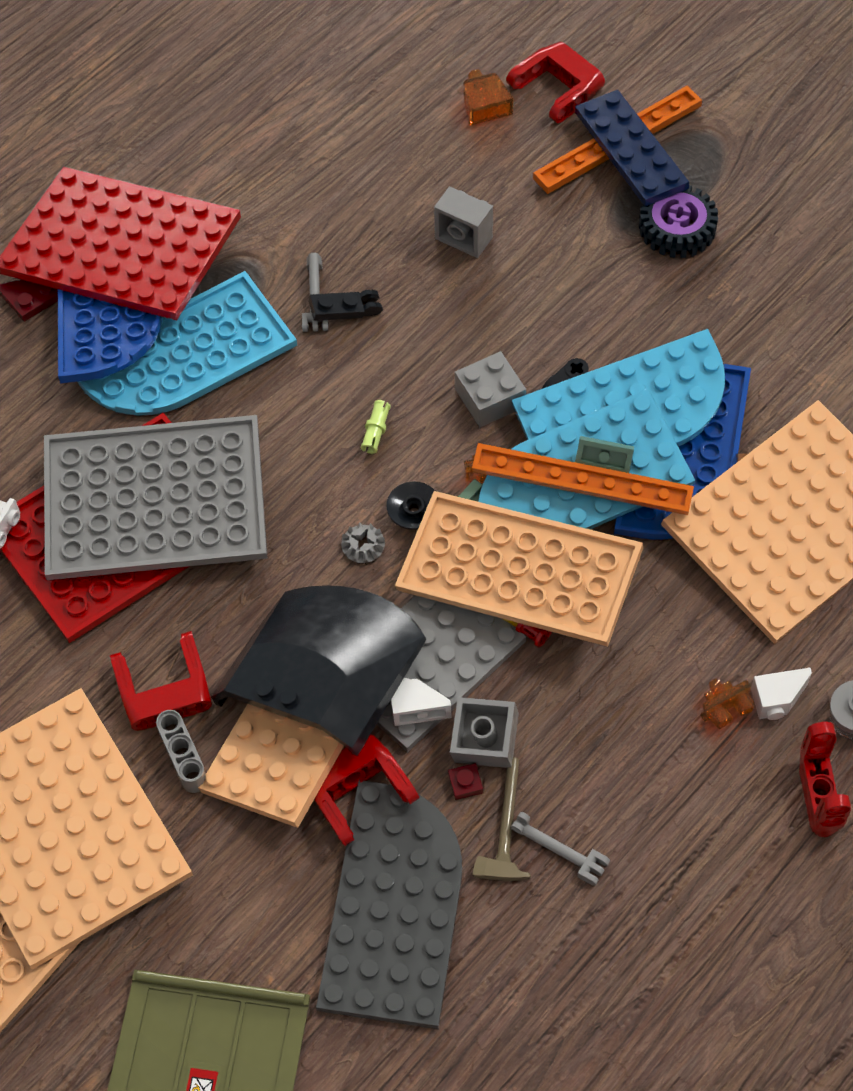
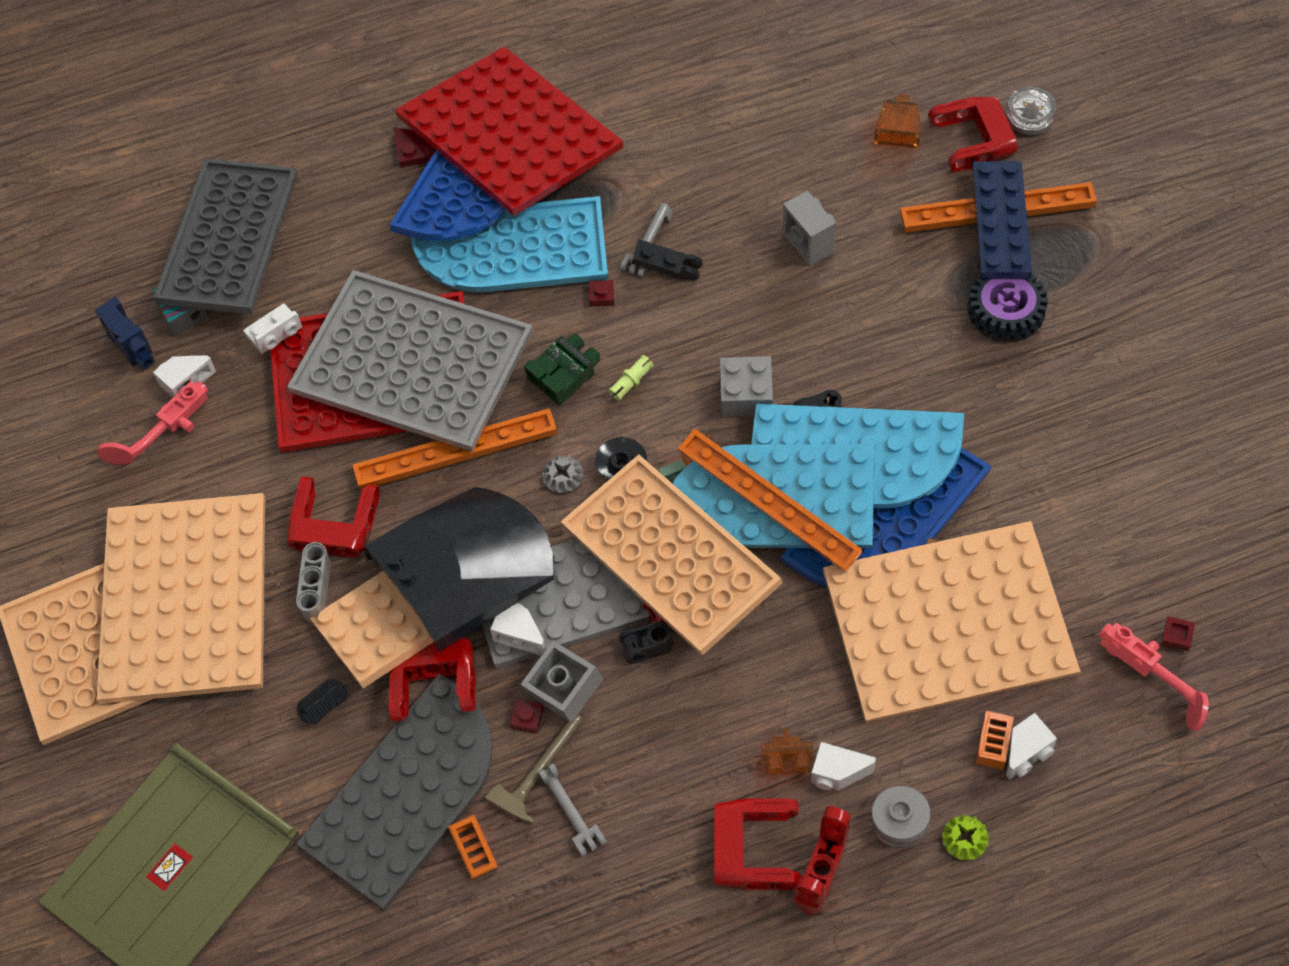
camera: 30 degrees right, 0 degrees up
(233, 575) = (440, 454): none -> orange plate
(260, 860) = (321, 701): none -> black piece
(298, 360) = (601, 293): none -> dark red plate
(305, 444) = (562, 368): none -> dark green hips
(482, 935) = (471, 822): none -> orange slope
(534, 664) = (644, 642): none -> black piece
(597, 41) = (1031, 110): none -> clear piece
(604, 454) = (798, 486): sand green plate -> none
(727, 810) = (729, 844): none -> red connector

